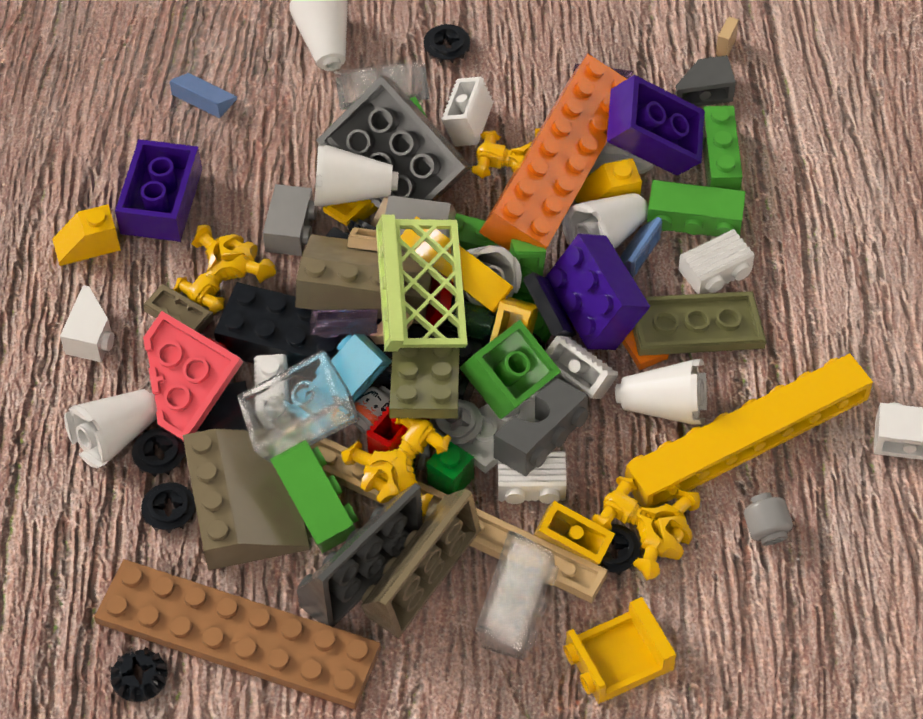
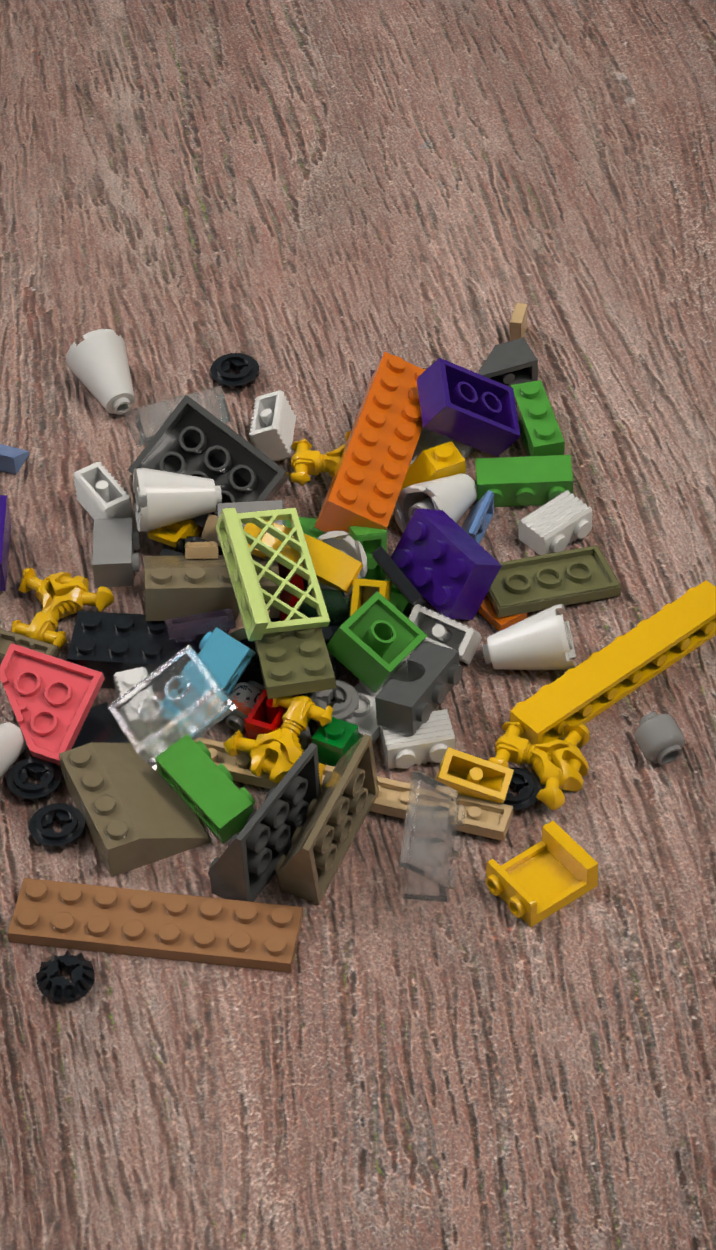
camera: 10 degrees left, 10 degrees down
(290, 158) = (101, 493): none -> white brick

